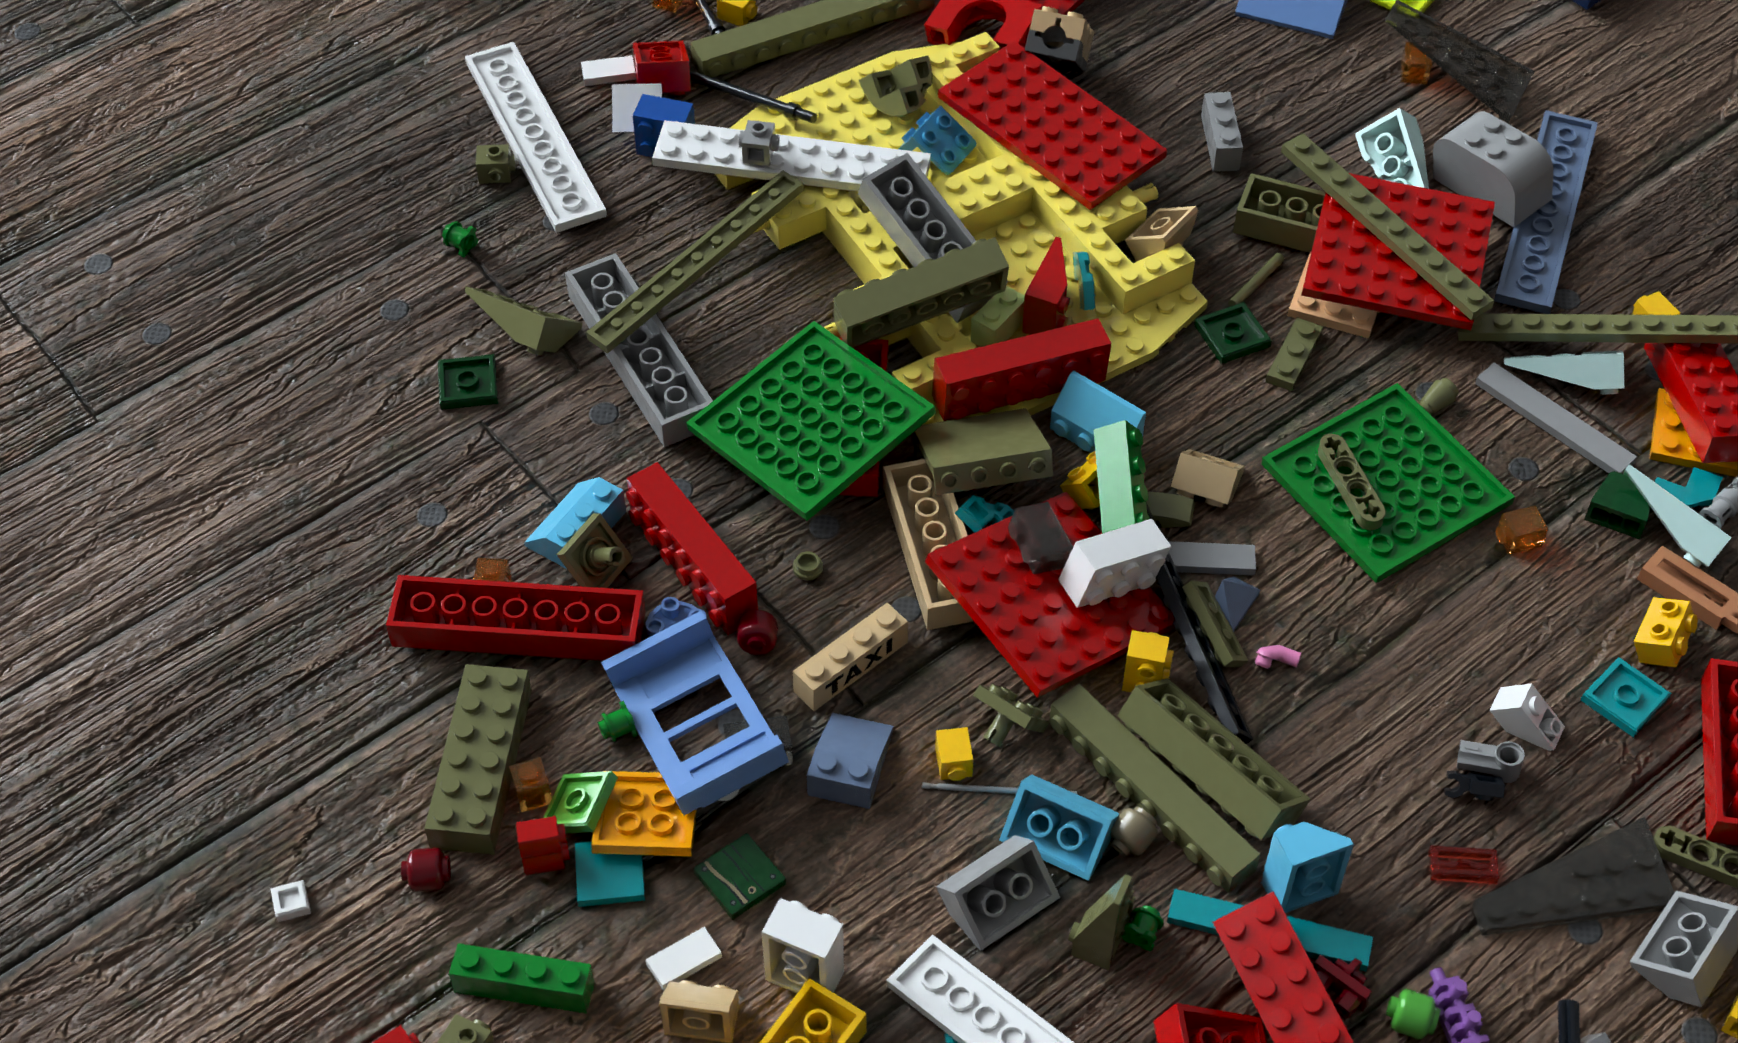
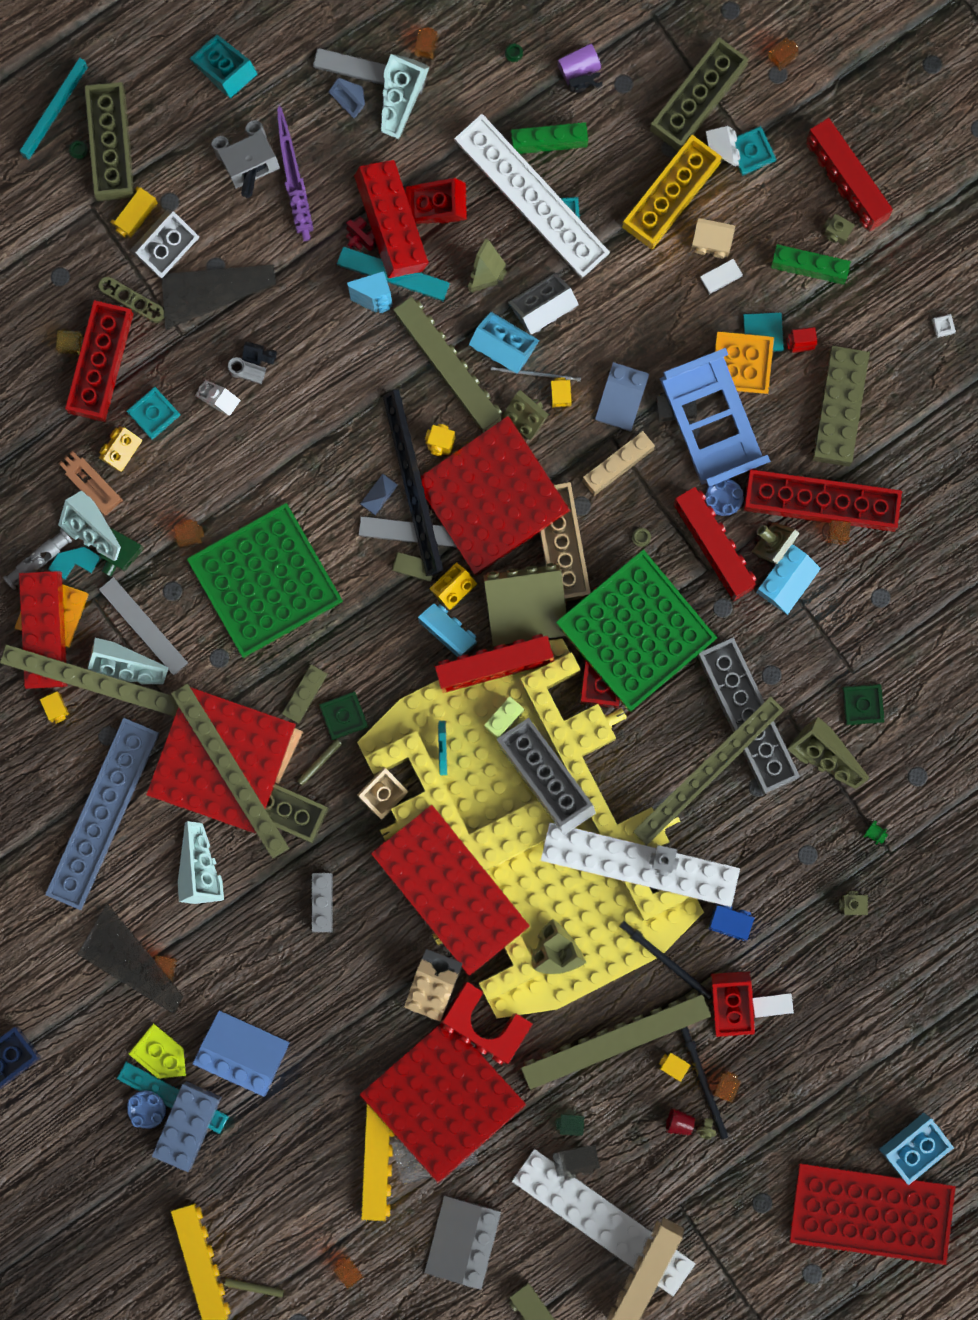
camera: 175 degrees left, 30 degrees up
(426, 869) = (867, 334): dark red head -> none
(530, 784) = (810, 386): clear orange brick -> none
(535, 137) = (827, 936): white plate -> none
(581, 800) = (782, 371): bright green tile -> none
(617, 723) = (760, 425): green brick -> none
(625, 100) = (751, 958): white sticker -> none
(739, 876) = (689, 325): dark green tile -> none
(757, 630) = (674, 485): dark red head -> none
(802, 947) = (655, 258): white brick -> none
(920, 292) = (559, 711): olive brick -> none
(942, 138) = (532, 895): dark azure bracket -> none
(978, 513) = (532, 556): teal tile -> none
(1040, 537) = (497, 519): clear smoke brick -> none
(1046, 295) = (469, 727): red slope -> none
(1114, 563) = (453, 496): white brick -> none
(1120, 475) = (441, 560): brick -> none
(1133, 831) = (461, 335): dark tan head -> none
(1143, 927) = (463, 276): green brick -> none
(1207, 477) = (379, 590): tan slope -> none
(1213, 758) = (410, 372): olive brick -> none
(1214, 624) = (394, 470): olive plate -> none
(1278, 653) = (360, 454): bright pink arm -> none
(1356, 479) = (288, 573): olive beam -> none
(1413, 1014) = (325, 214): bright green head -> none
(1439, 396) = (218, 646): olive cone -> none
(1463, 869) = (275, 315): clear red tile -> none
(1495, 164) = (138, 836): light grey brick -> none

